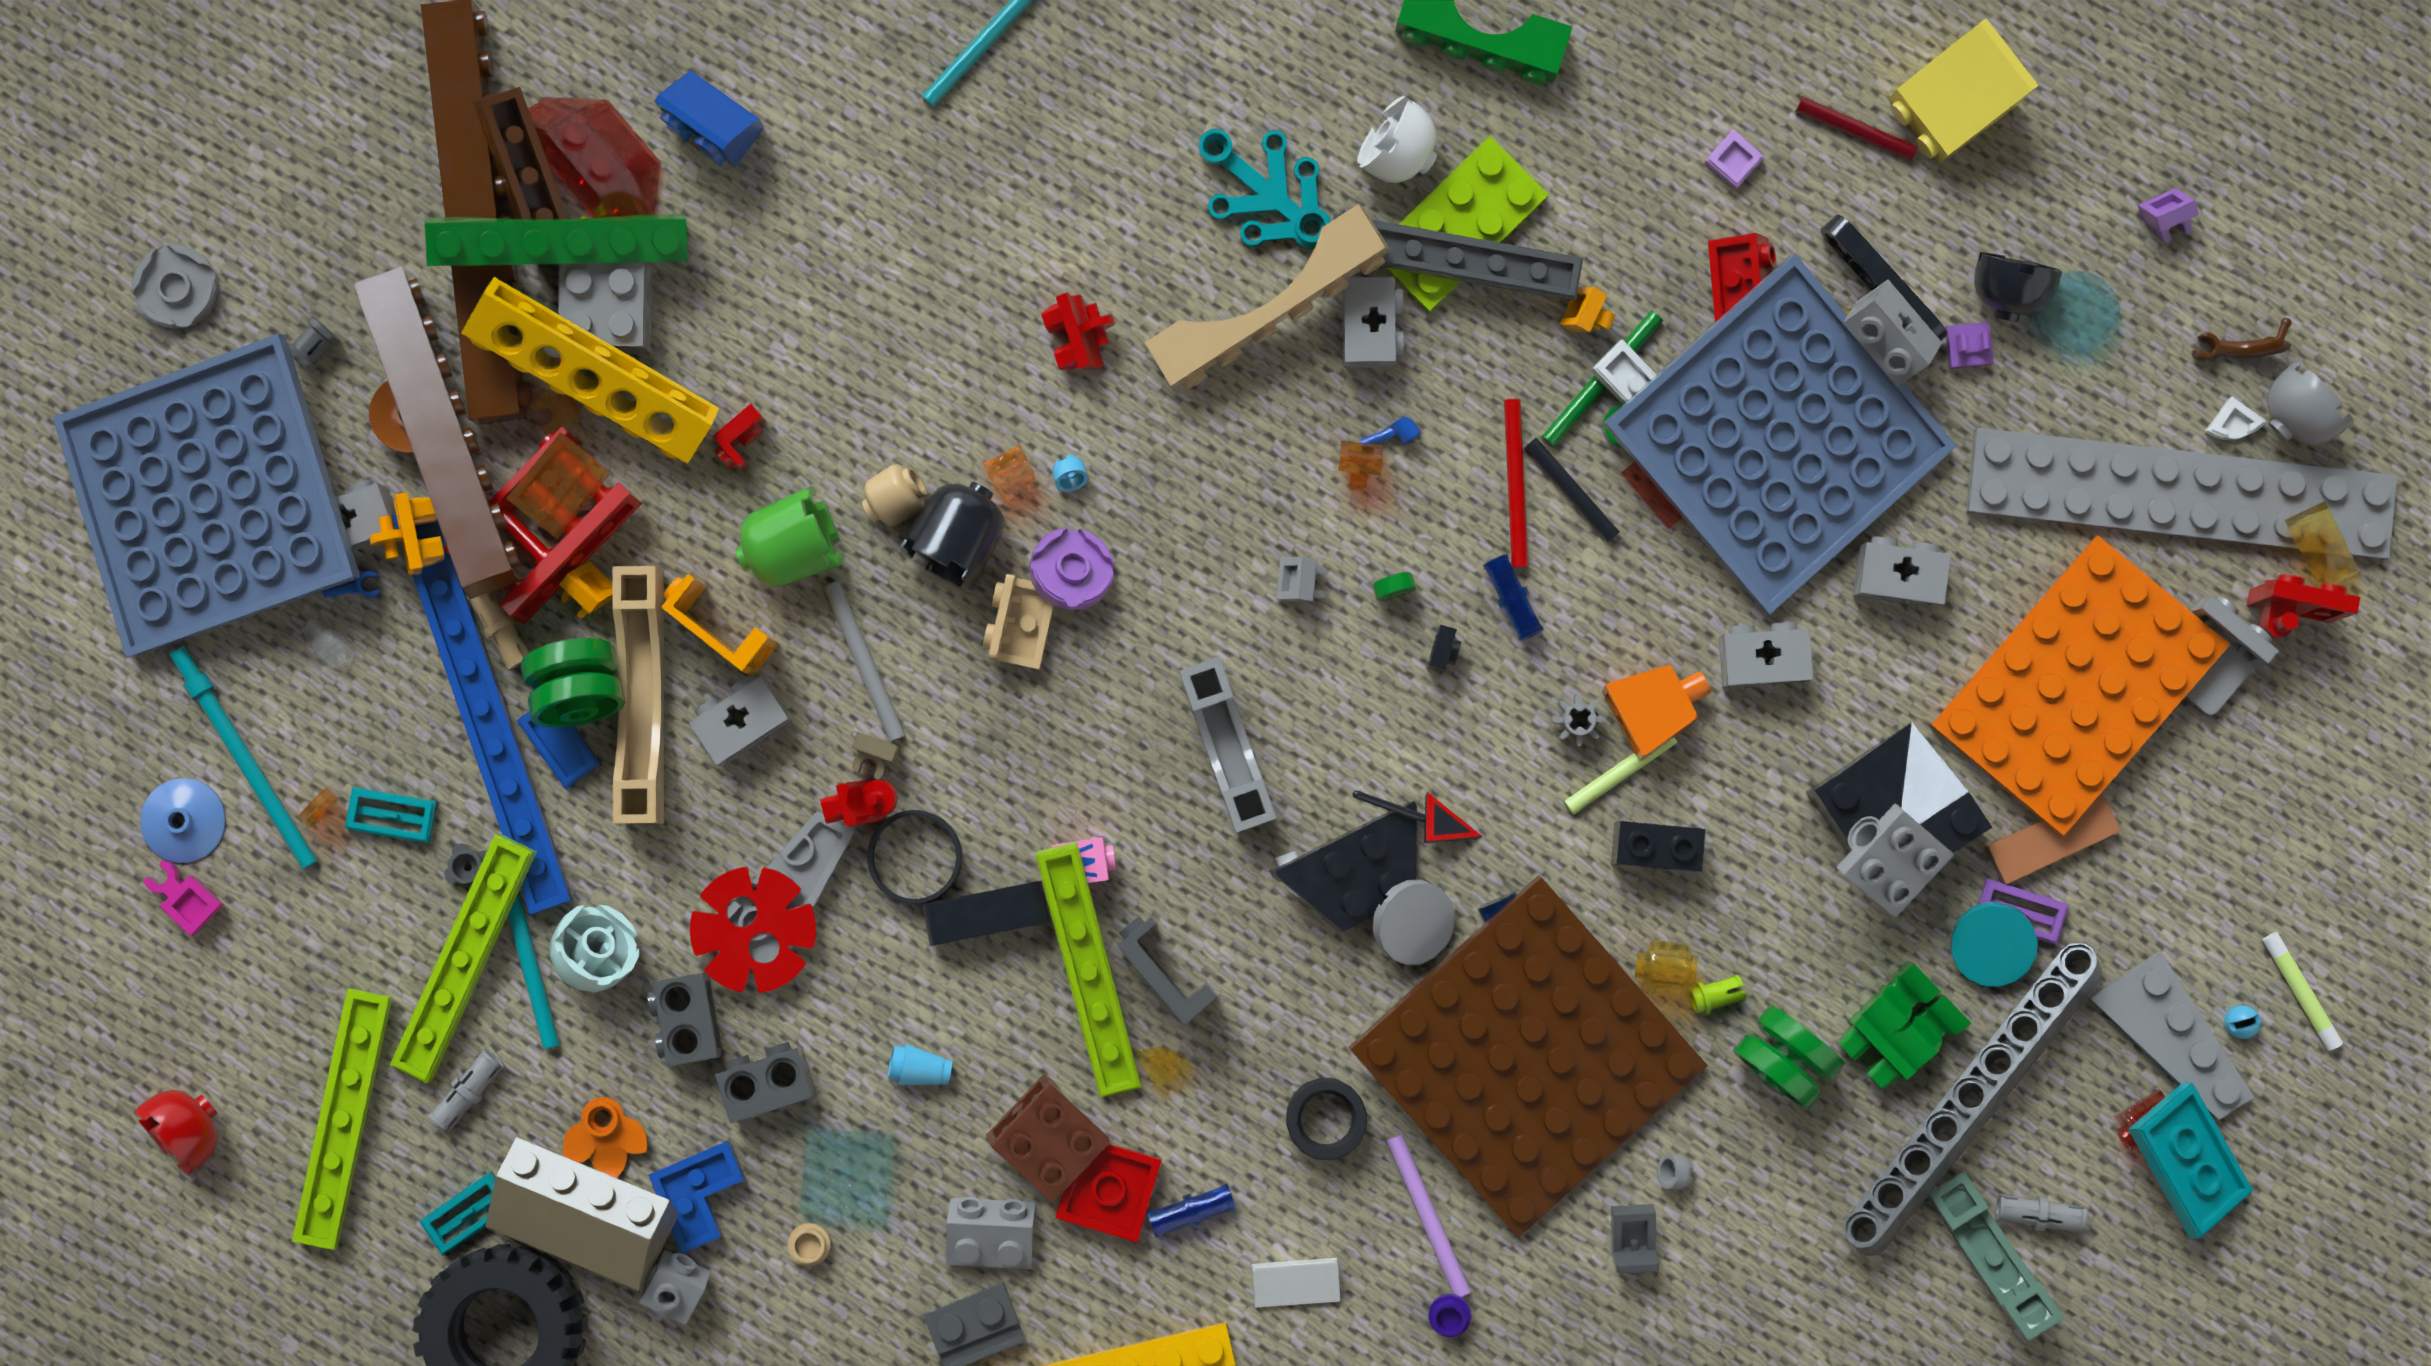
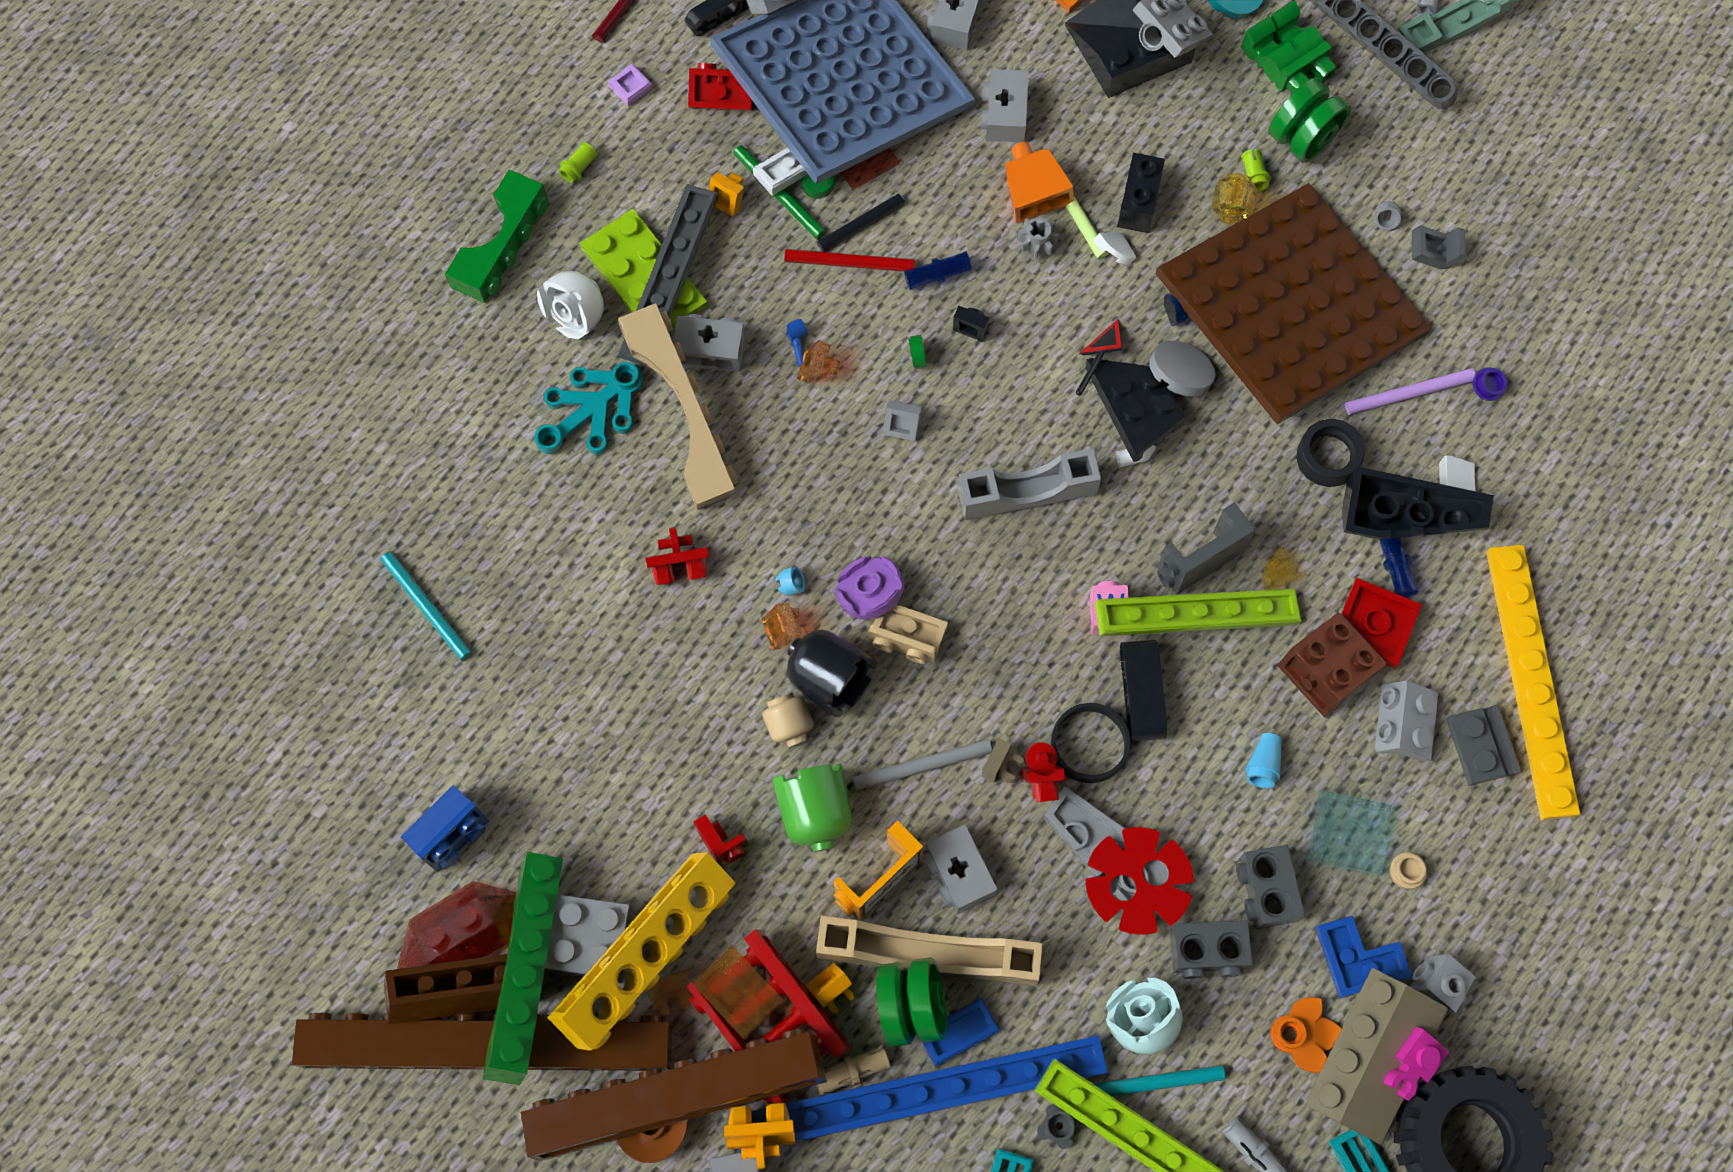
camera: 80 degrees left, 15 degrees down
(575, 1258) = (1419, 1059): none -> dark pink plate
(1251, 1210) = (1400, 506): none -> black wedge
(1579, 822) = (1116, 245): none -> white tile
(1605, 111) = (573, 167): none -> lime pin

